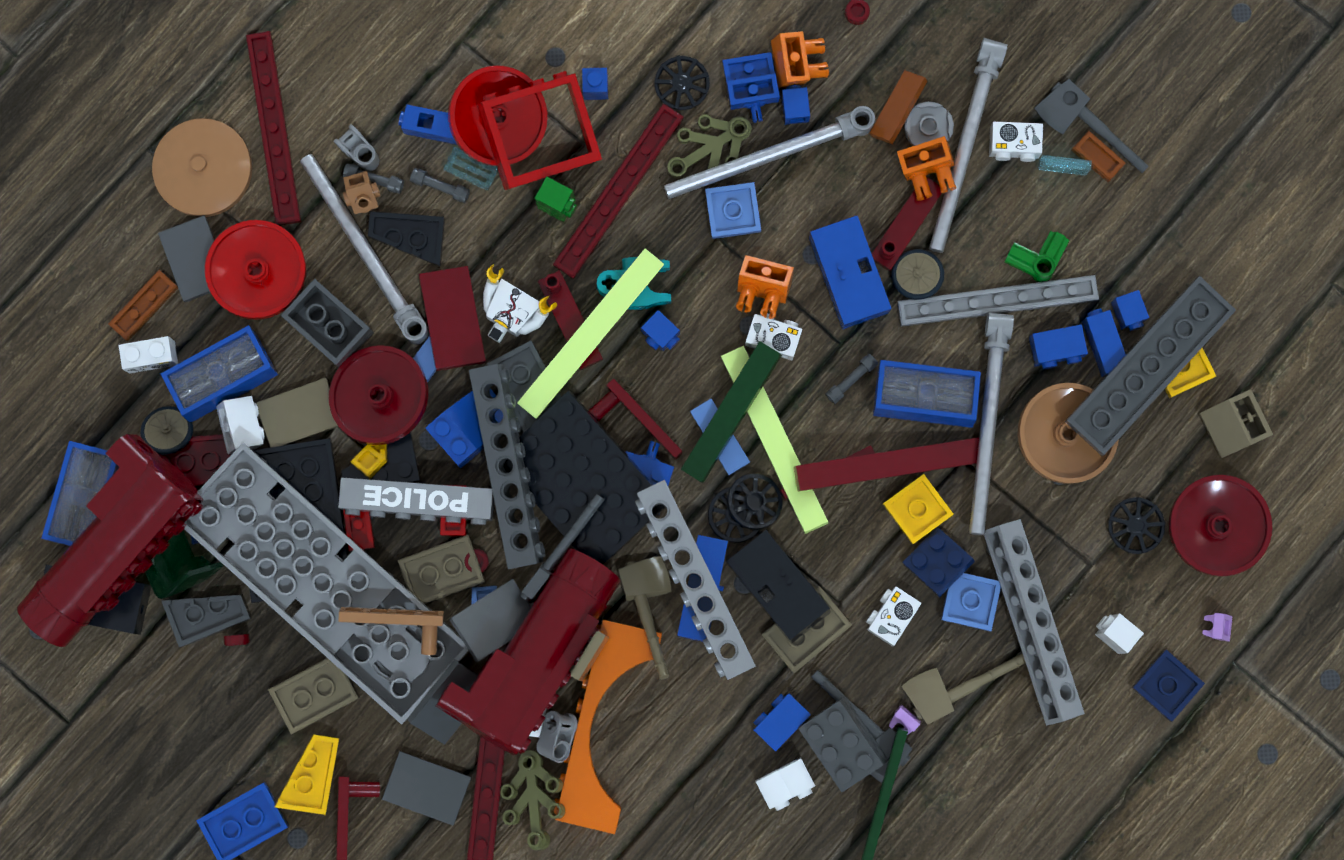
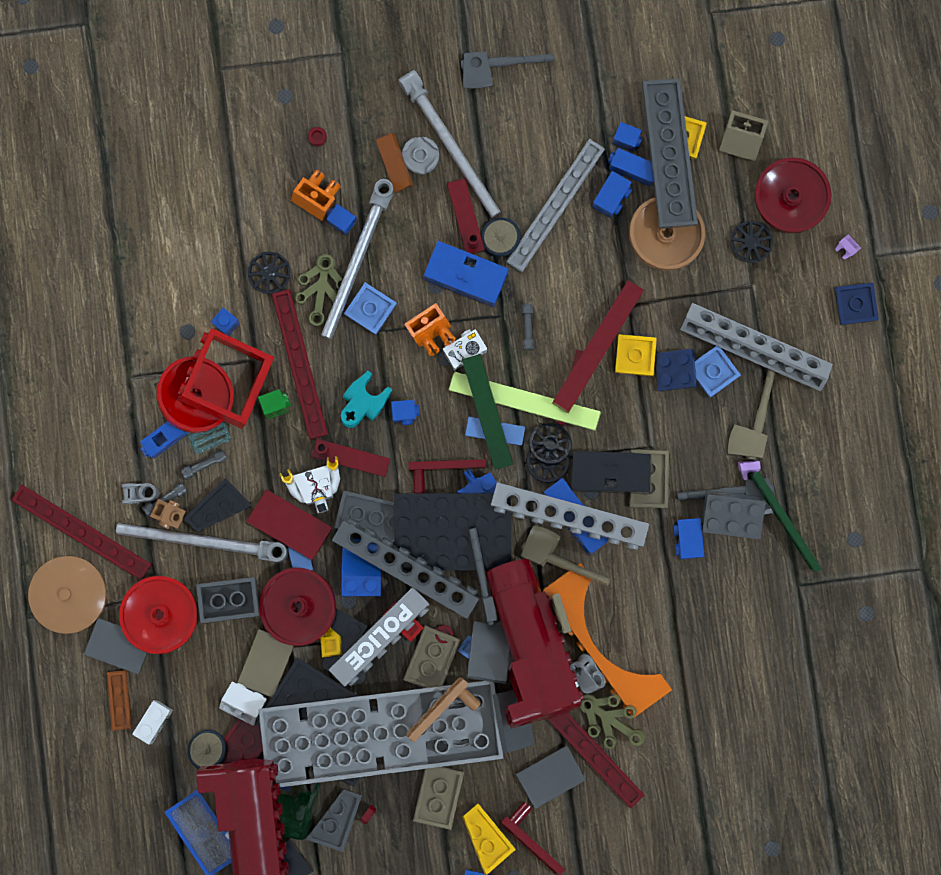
camera: 55 degrees left, 0 degrees up
(219, 374) = (201, 690): brick -> none
(360, 530) = (366, 686): red plate -> none
(590, 333) = (371, 452): yellowish green tile -> none
(751, 83) = (305, 233): blue plate -> none
(785, 784) = (726, 567): white brick -> none
(893, 615) = (684, 422): white brick -> none
(926, 159) = (439, 173): orange brick -> none
(926, 393) = (574, 292): brick -> none
(999, 331) = (573, 220): flat silver piece -> none
(1016, 141) = (473, 114): white brick -> none
(1049, 255) = (555, 153): green piece -> none
(1064, 165) = (512, 99): clear light blue tile -> none
(1103, 159) = (523, 76): dark orange tile -> none
(1118, 633) = (804, 305): white brick -> none

